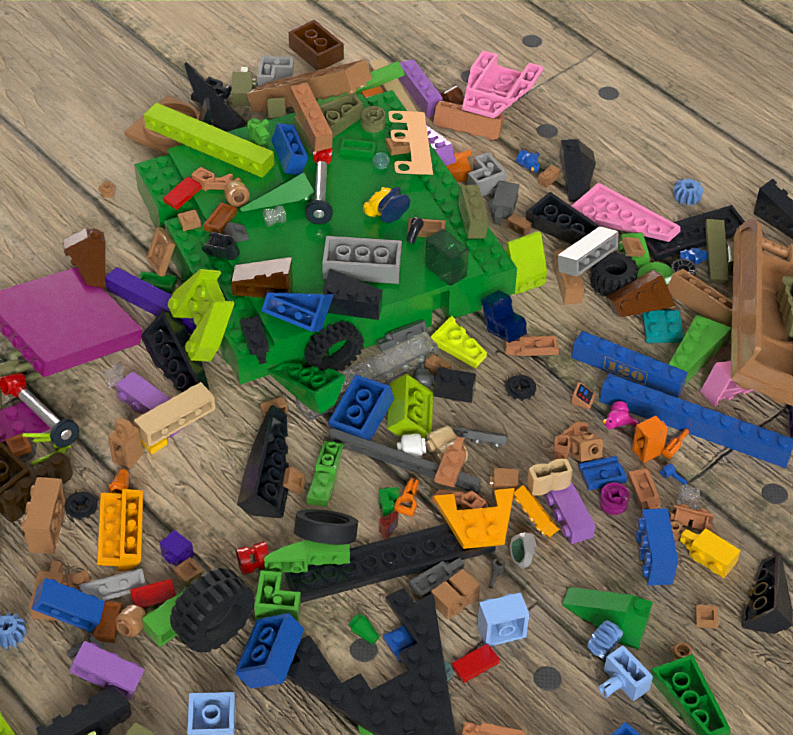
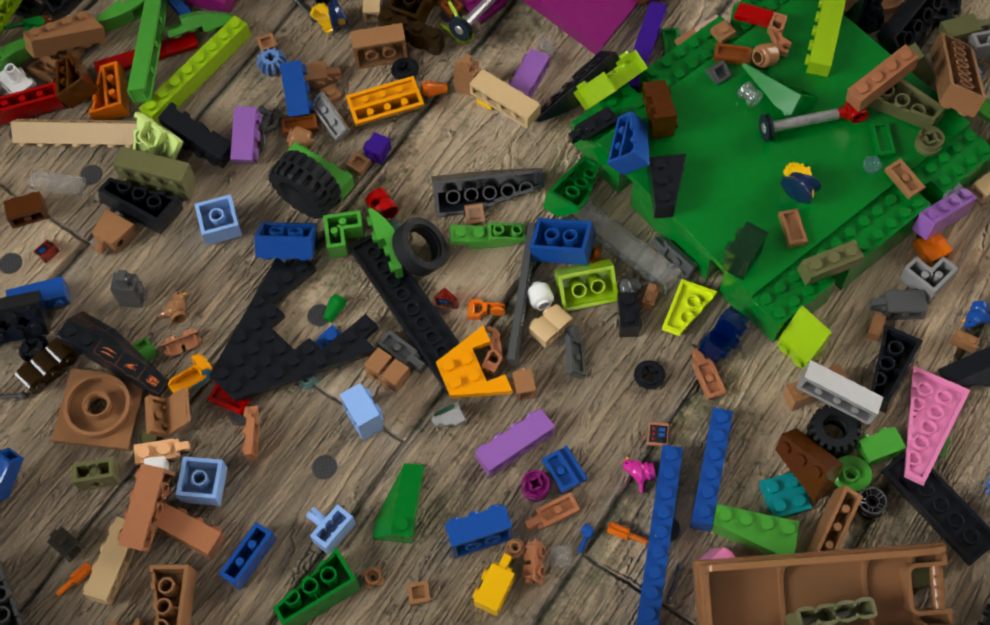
camera: 80 degrees right, 15 degrees up
(153, 594) = (330, 146): red tile -> none
(221, 246) = (693, 65): black piece -> none
(258, 132) = (854, 46): bright green hips -> none
(279, 402) = (552, 174): medium nougat piece -> none
(289, 148) = (843, 79): blue brick -> none
(327, 339) = (622, 197): black tyre -> none
(363, 258) = (716, 180): light grey brick -> none
(386, 500) = (471, 289): green bracket -> none
(416, 226) = (780, 215): black arm -> none
(418, 140) = (914, 188): light nougat piece -> none
(451, 463) = (521, 329): nougat hinge -> none
(475, 663) = (323, 403): red tile -> none
(496, 570) = (423, 399): dark grey hand -> none
(535, 511) = (495, 417): light orange piece -> none
(548, 477) = (520, 412): tan brick -> none
(563, 442) = (599, 429): nougat piece -> none
(586, 446) = (586, 447): medium nougat brick -> none
(605, 639) = (364, 503): medium blue gear -> none
(633, 247) = (871, 438): medium nougat plate -> none
(649, 439) = (612, 502): orange brick -> none
(694, 255) = (899, 509): blue animal -> none
(716, 251) = (919, 531): olive tile -> none

